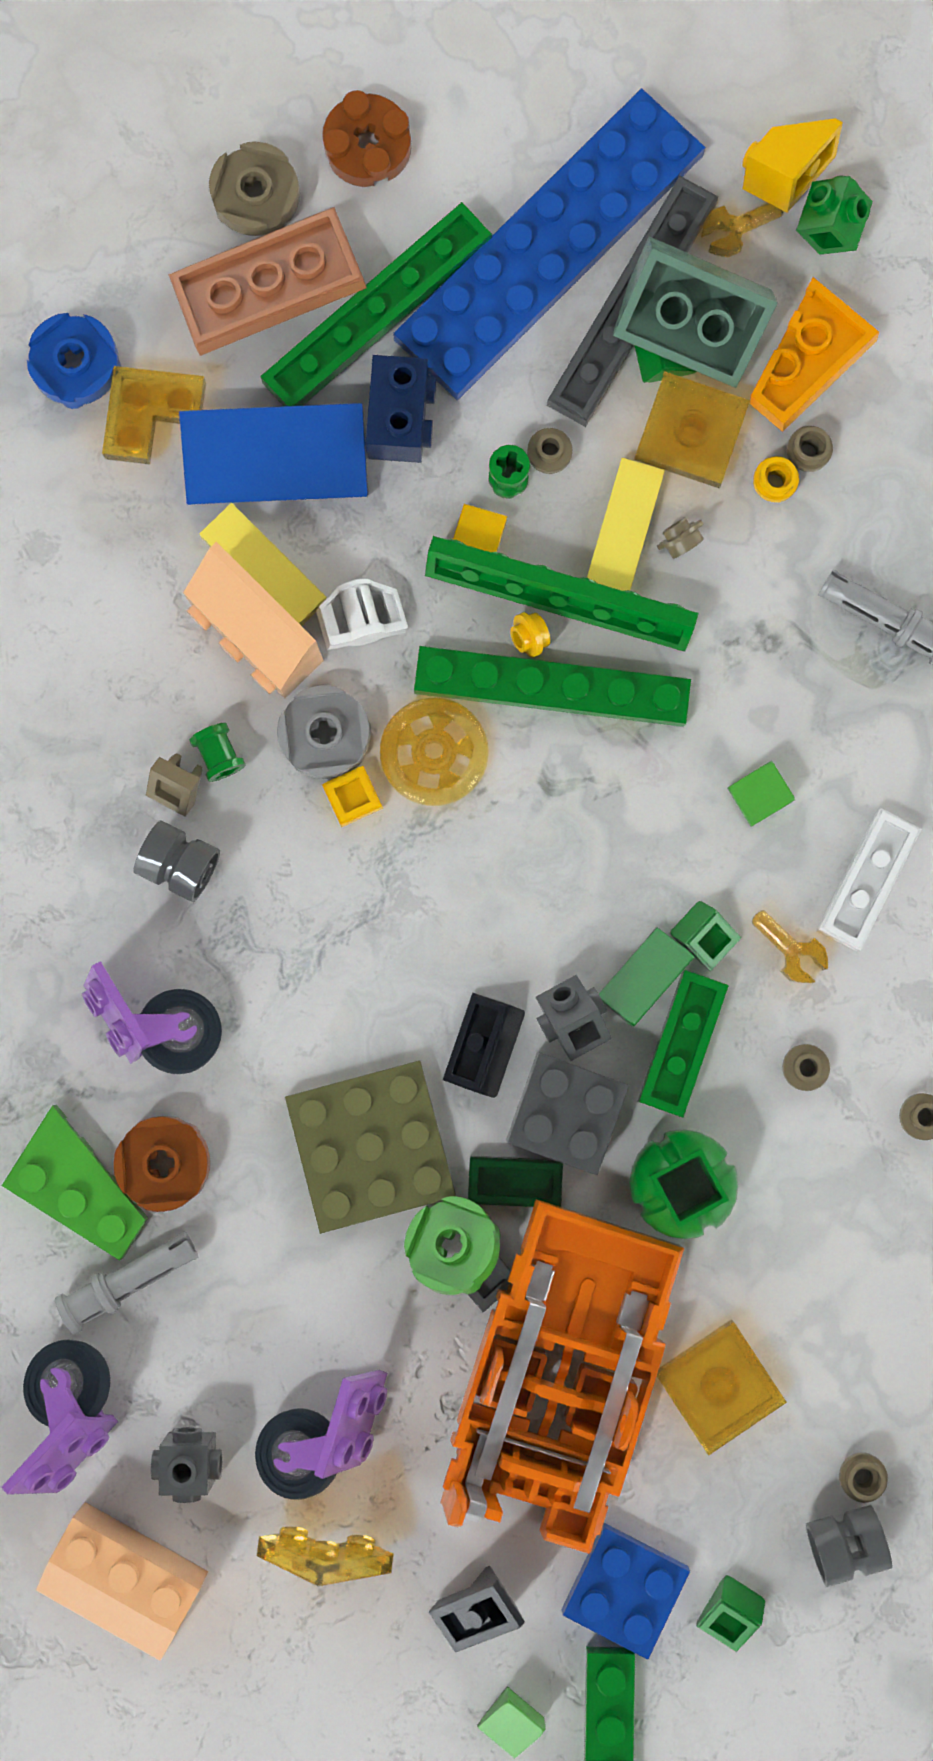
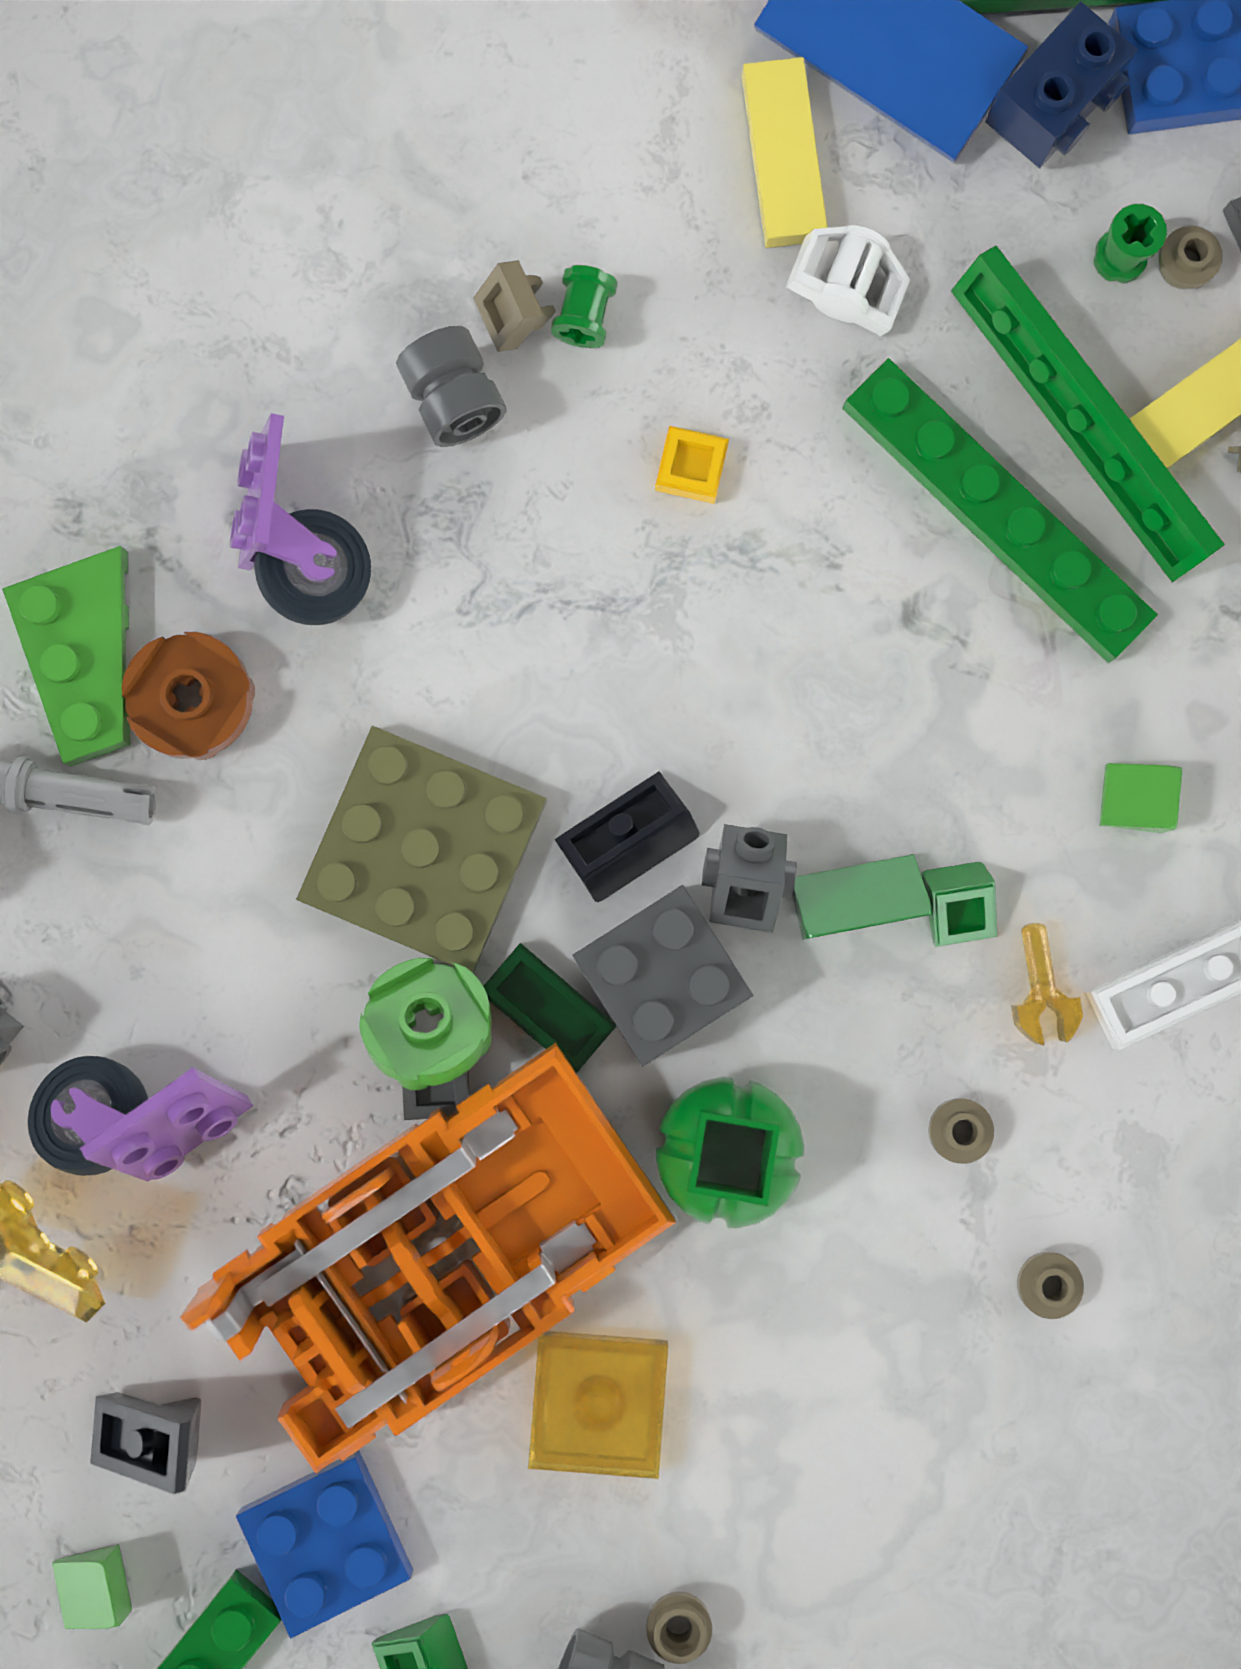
camera: 35 degrees right, 0 degrees up
(251, 623) = (727, 192): light nougat slope -> none
(303, 716) = (704, 339): light grey plate -> none
(441, 714) = (806, 533): clear yellow plate -> none
(480, 528) = (1053, 281): yellow tile -> none
(530, 634) = (1018, 434): yellow plate -> none
(683, 1043) = (846, 1000): green plate -> none

